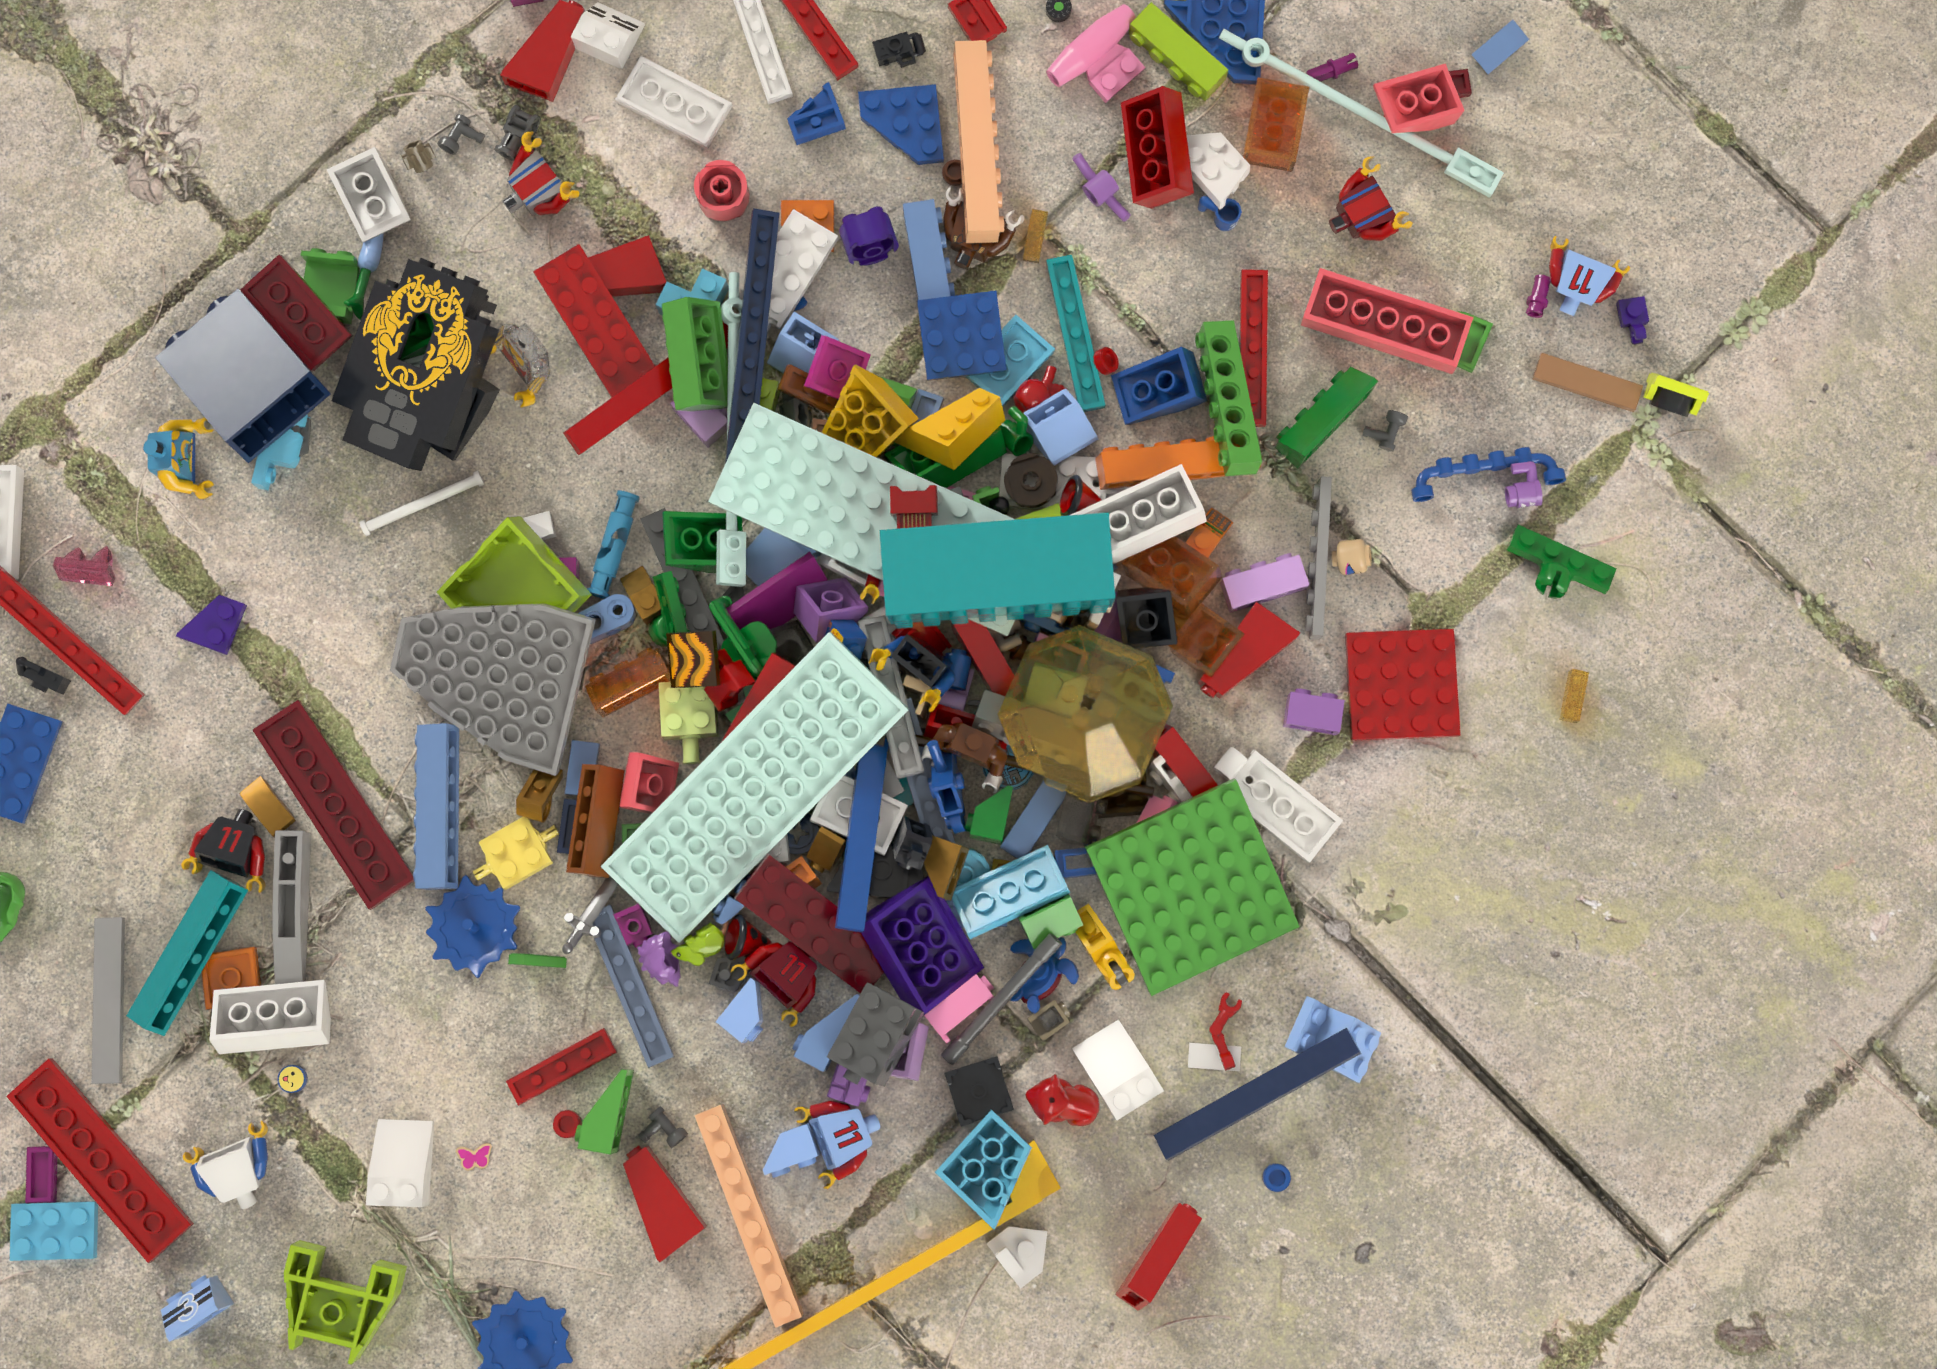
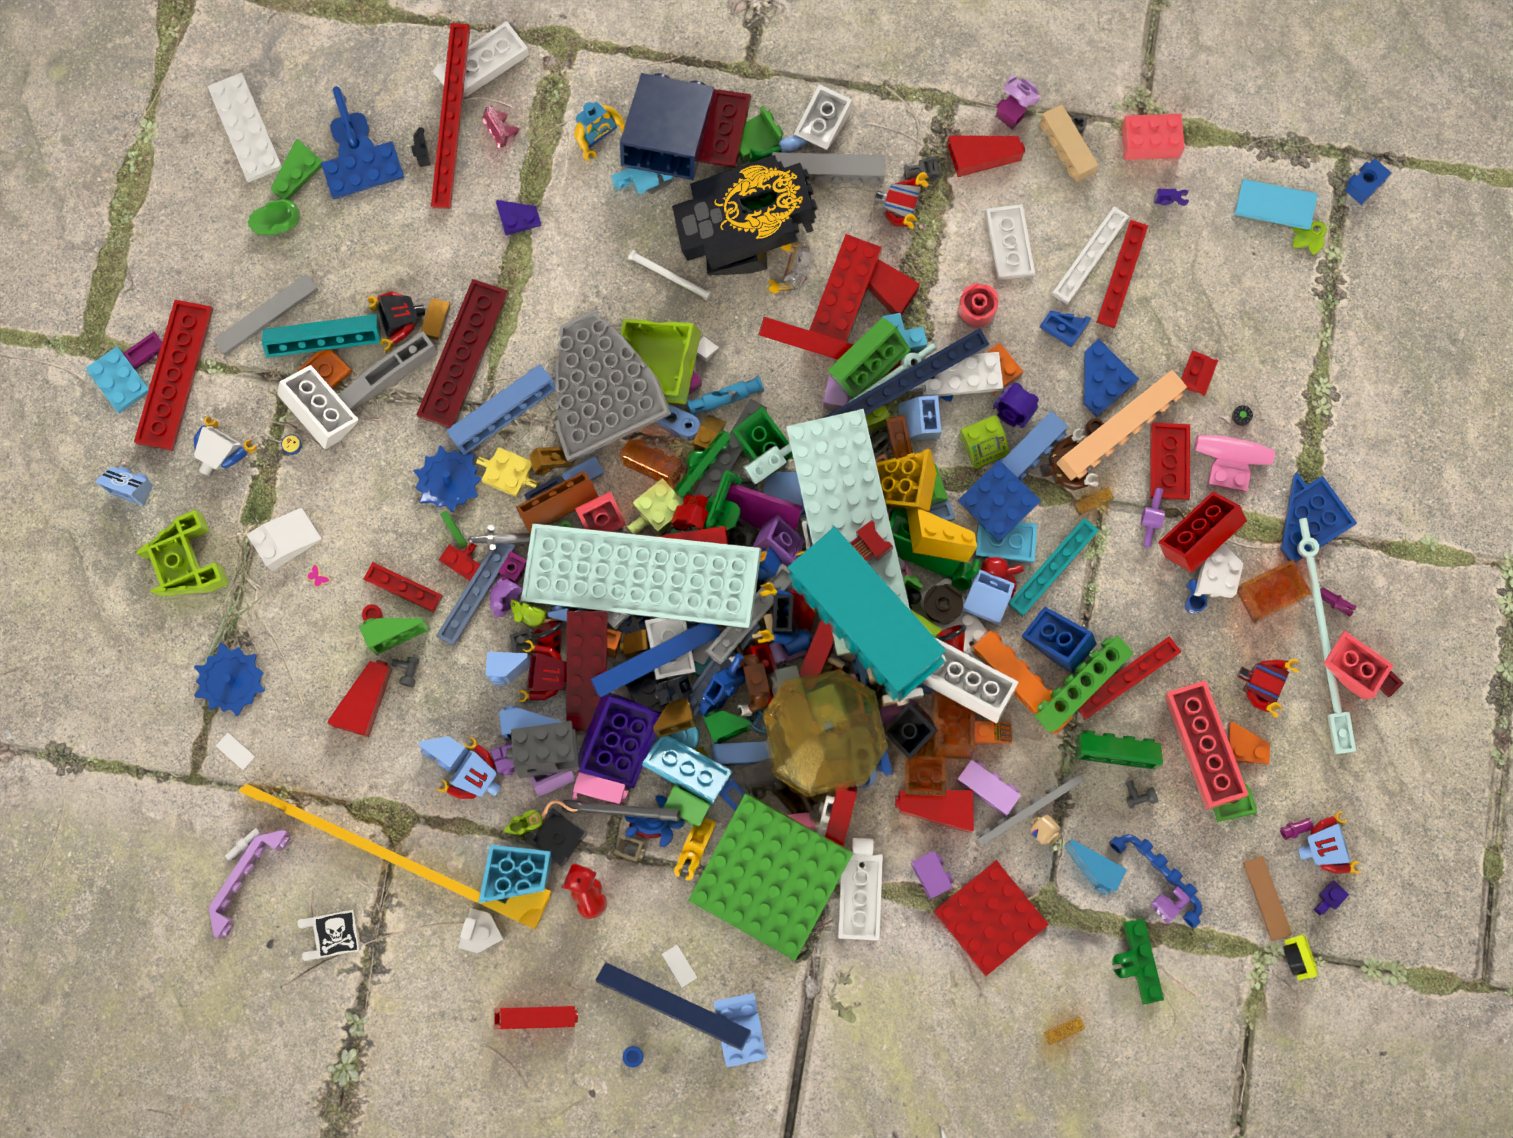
camera: 55 degrees right, 5 degrees down
(418, 156) = (867, 128): dark tan gear -> none
(439, 223) = (838, 167): none -> light grey brick
(461, 126) = (903, 138): dark grey piece -> none
(581, 978) = (461, 560): none -> red plate
(607, 34) = (1020, 176): white slope -> none
(693, 659) = (688, 485): slope -> none
(749, 1215) = (390, 756): light nougat brick -> none
(833, 366) = (921, 438): dark pink plate -> none
(882, 301) = (984, 441): none -> lime slope
(898, 48) = (1144, 342): black piece -> none
(938, 1107) = (530, 820): none -> lime animal
(1051, 121) = (1170, 460): none -> red plate
(1106, 360) = (1050, 596): red tile -> none
(1117, 1070) = (629, 911): white slope -> none
(1177, 52) = (1271, 503): lime brick -> none
(1216, 1028) = (698, 954): red piece -> none
(1416, 278) = (1247, 746): none -> orange wing
(1435, 534) = (1097, 869): none -> dark azure slope
(1500, 46) = (1433, 692): medium blue slope -> none

